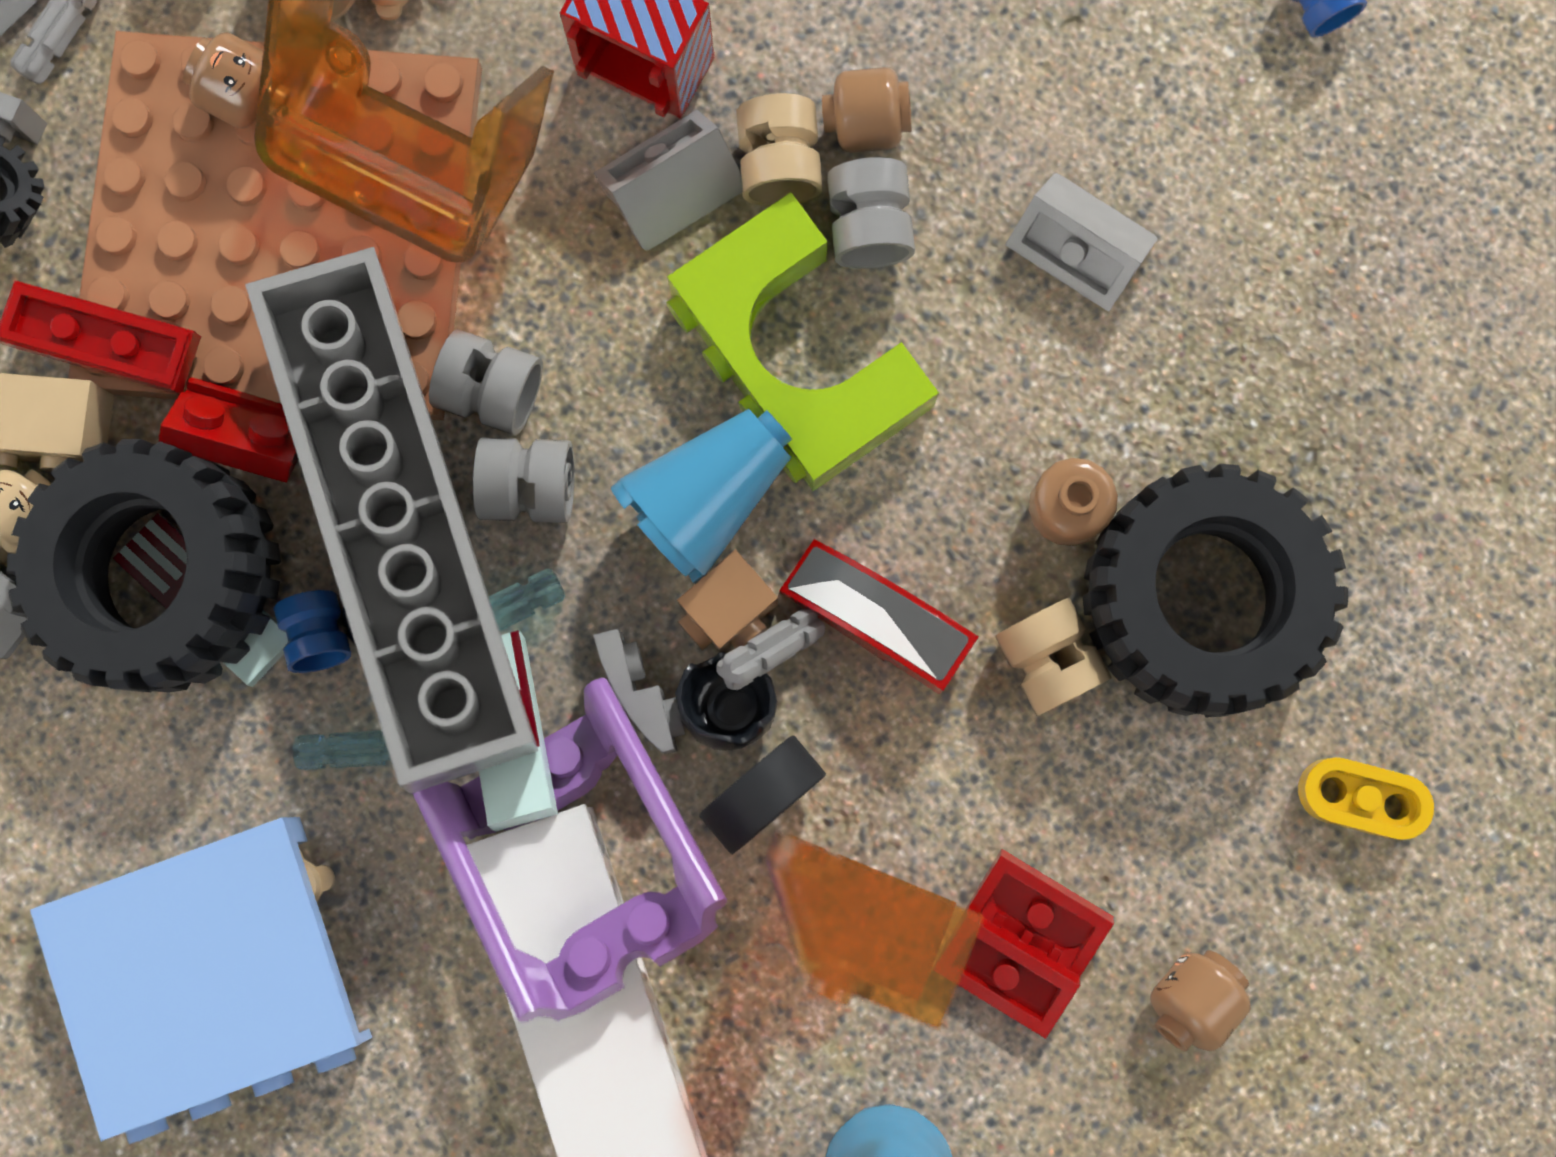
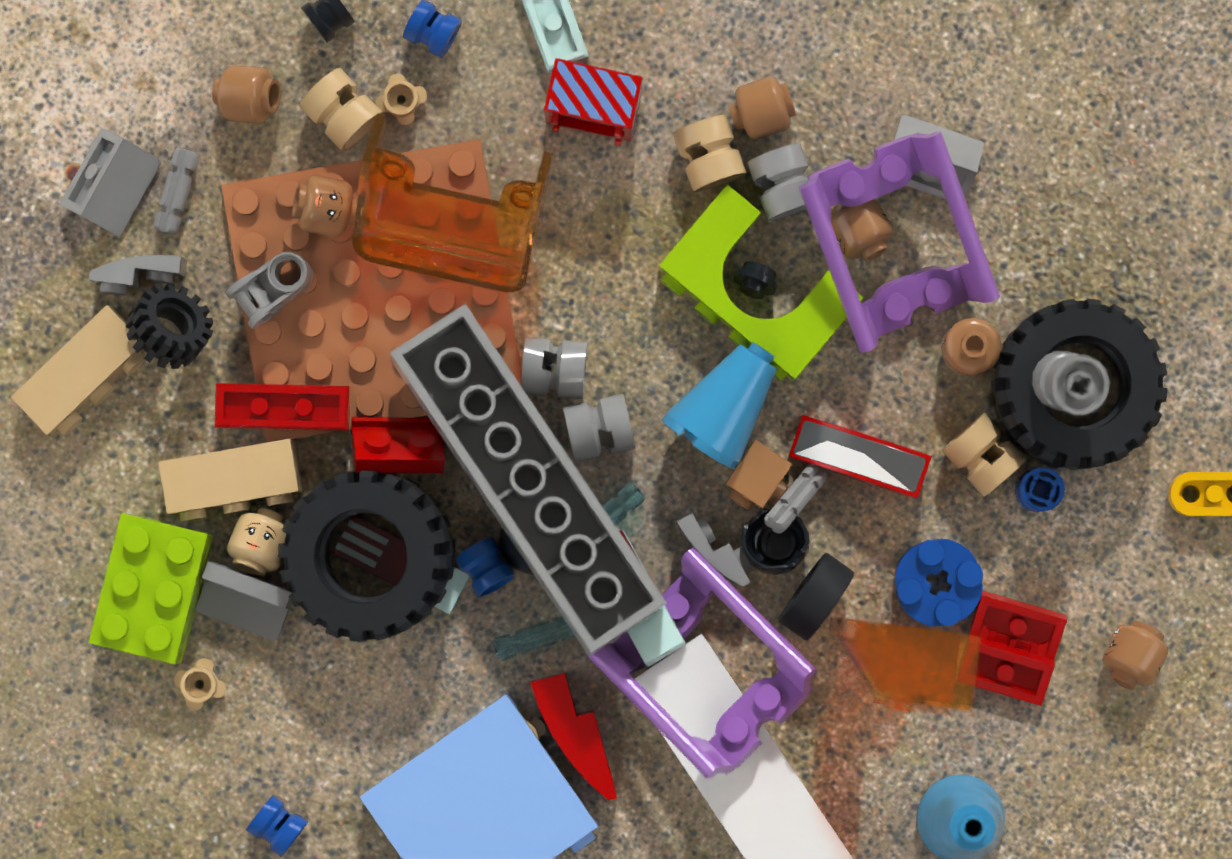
camera: 15 degrees left, 5 degrees up
(118, 173) = (268, 288): none -> light grey piece
(369, 902) = (574, 733): none -> red slope
(672, 179) = (637, 189): light grey panel -> none
(798, 337) = (756, 280): none -> black plate
(959, 302) = (861, 230): none -> medium nougat head
(980, 822) = (963, 576): none -> blue plate
(1019, 228) = (930, 286): none -> medium lavender piece
(1107, 729) = (1032, 492): none -> blue wheel
(1210, 574) = (1070, 382): none -> light grey wheel

